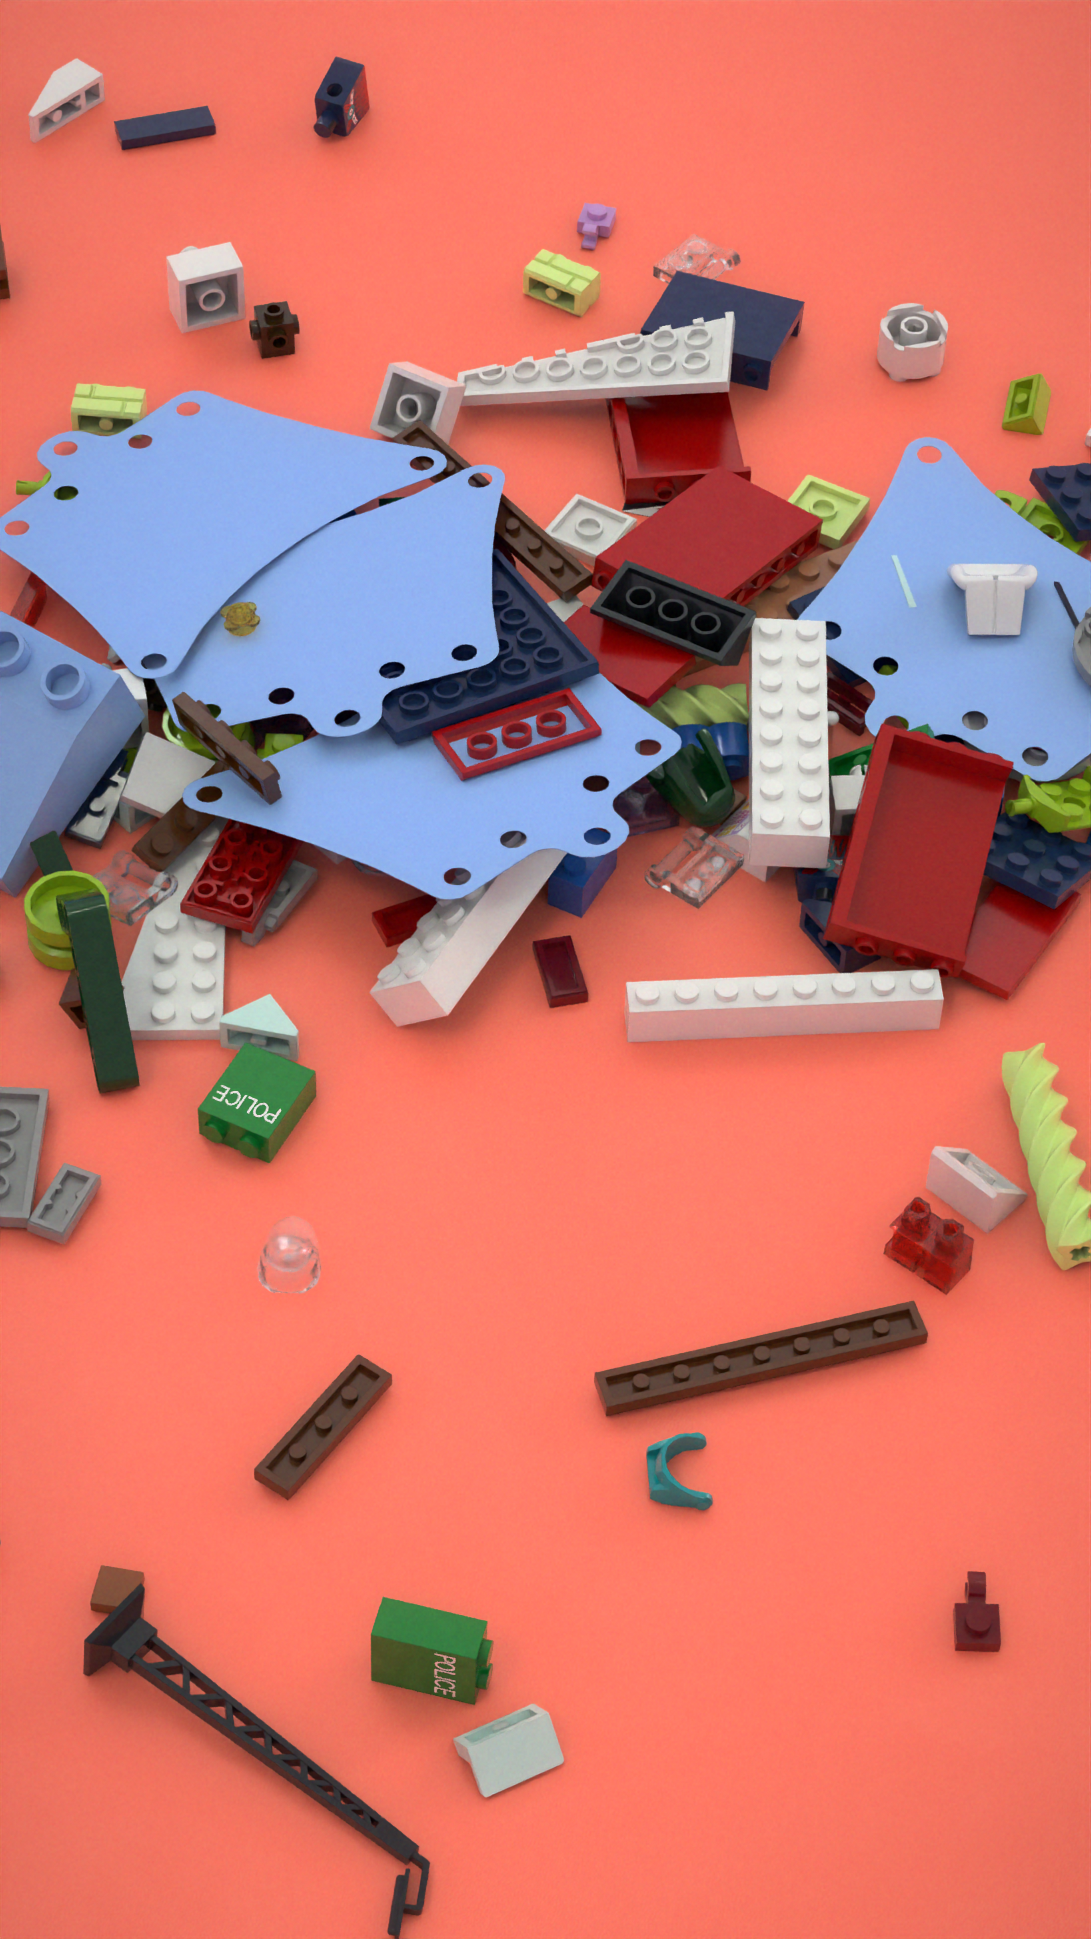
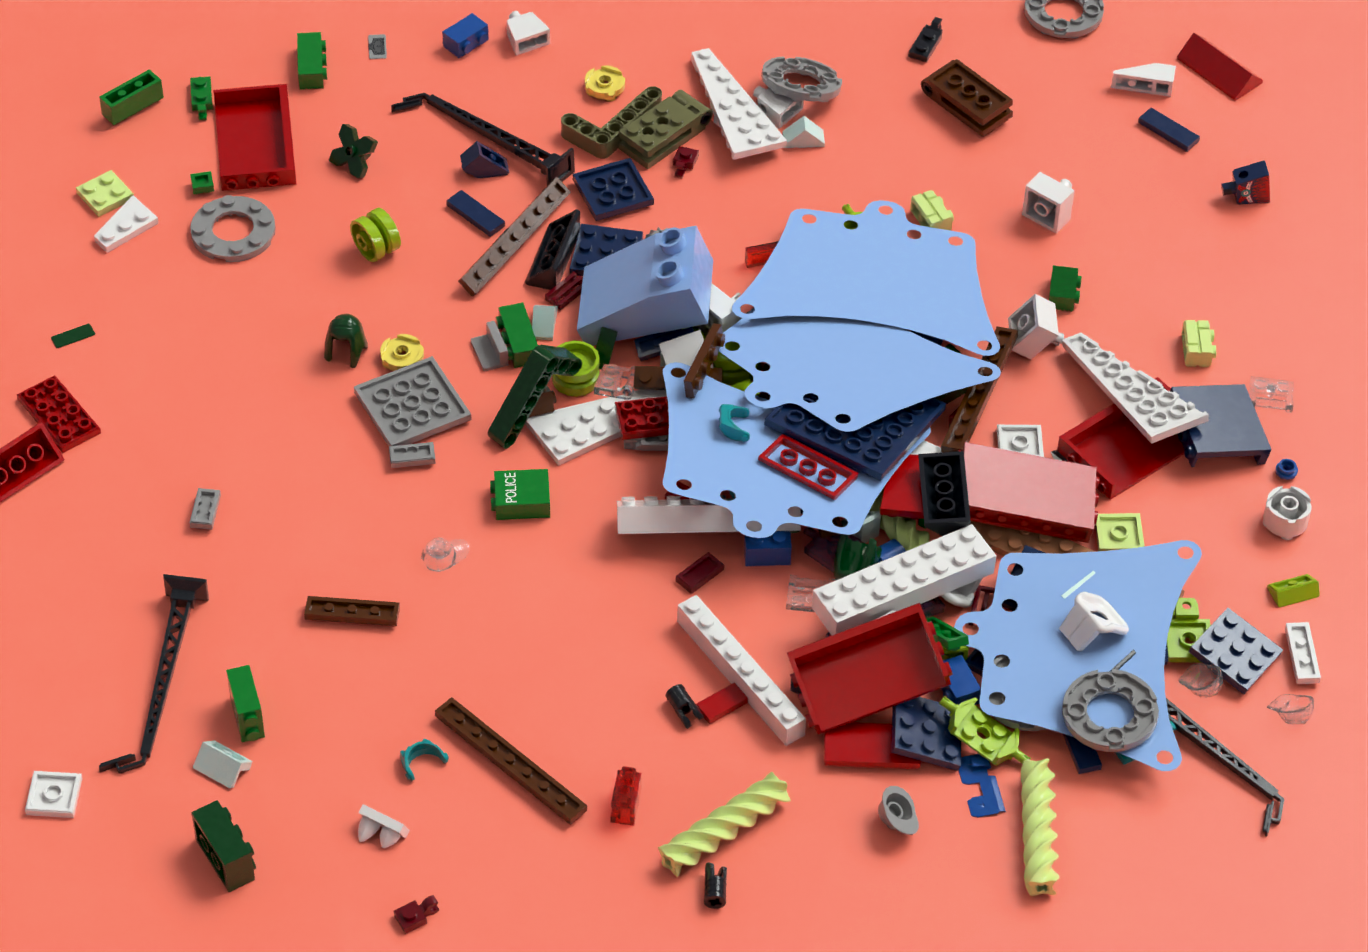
camera: 60 degrees right, 0 degrees up
(102, 31) = (1218, 67): none -> red slope
(113, 1587) = (216, 582): dark orange tile -> none
(240, 618) = (804, 326): clear yellow plate -> none
(261, 1025) = (569, 473): light aqua slope -> none
(274, 322) = (1048, 245): dark brown brick -> none
(357, 353) = (1063, 287): none -> green brick
(372, 778) = (727, 426): none -> teal helmet
(594, 222) = (1265, 336): lavender plate -> none
(704, 1813) = (224, 845): none -> dark green brick
(768, 1594) = (371, 822): none -> white tile
(792, 1102) = (682, 704): none -> black hinge
(819, 1060) = (722, 703): none -> red tile
(831, 312) = (1286, 469): none -> blue plate
(972, 1187) = (684, 799): slope -> none

